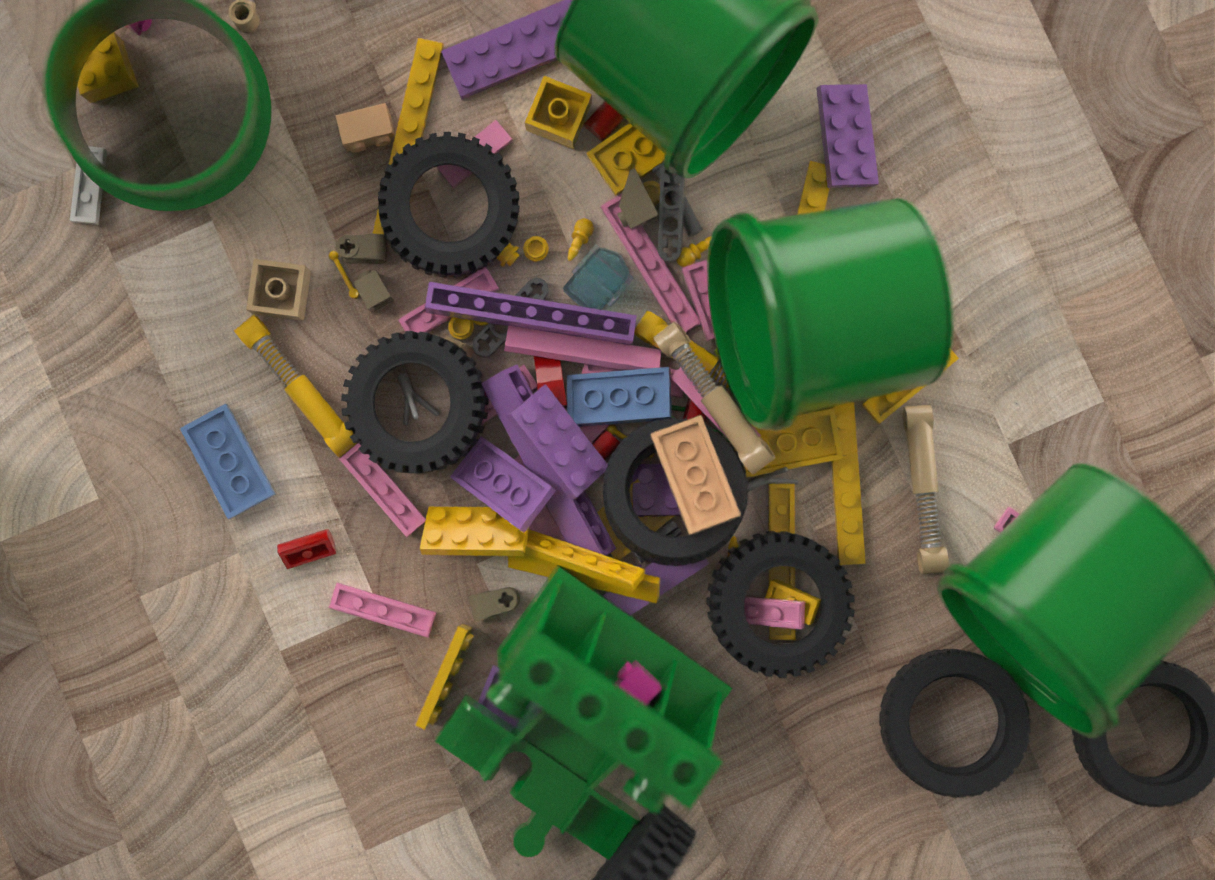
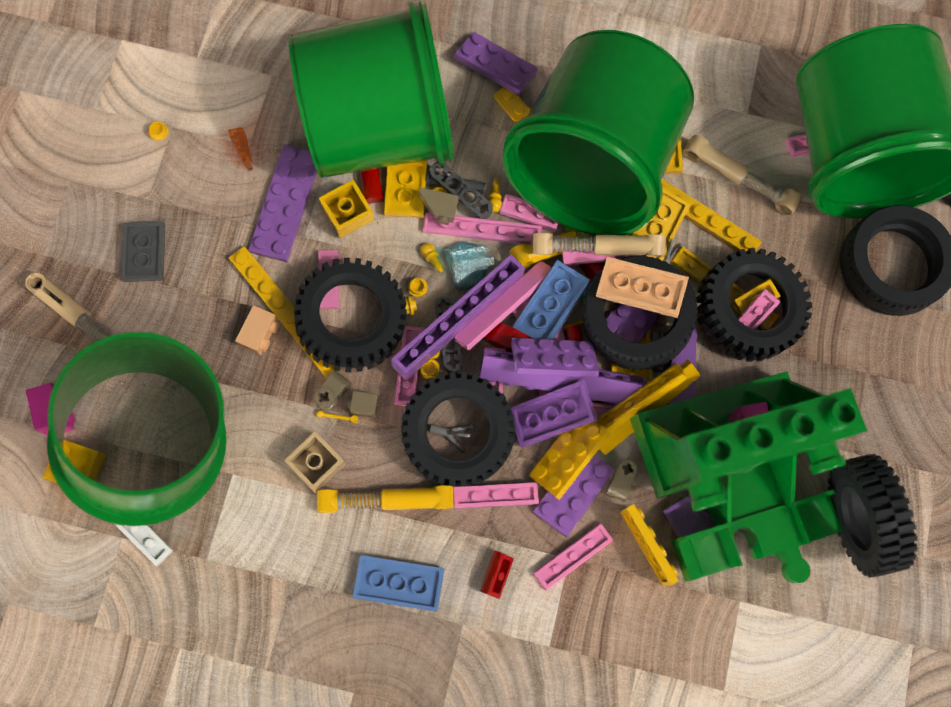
camera: 60 degrees left, 10 degrees down
(443, 571) = (567, 511): none -> medium lavender plate

